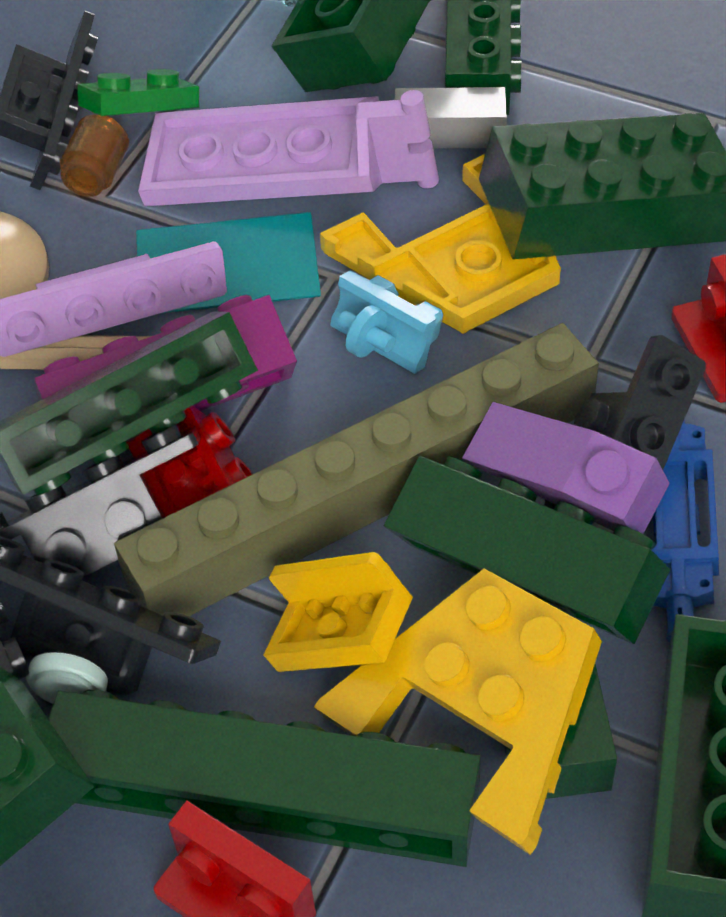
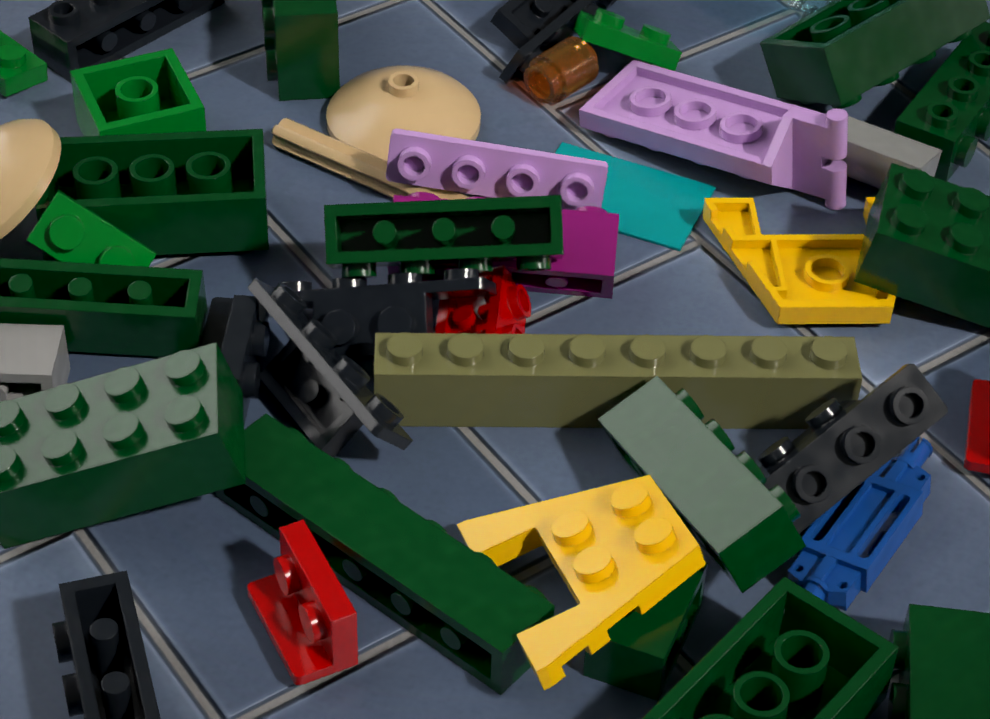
camera: 25 degrees right, 10 degrees down
(64, 673) = (283, 407): light aqua piece -> none
(336, 612) = (524, 460): yellow bracket -> none
(384, 322) = (712, 284): medium azure hips -> none
(569, 466) = (776, 436): medium lavender slope -> none

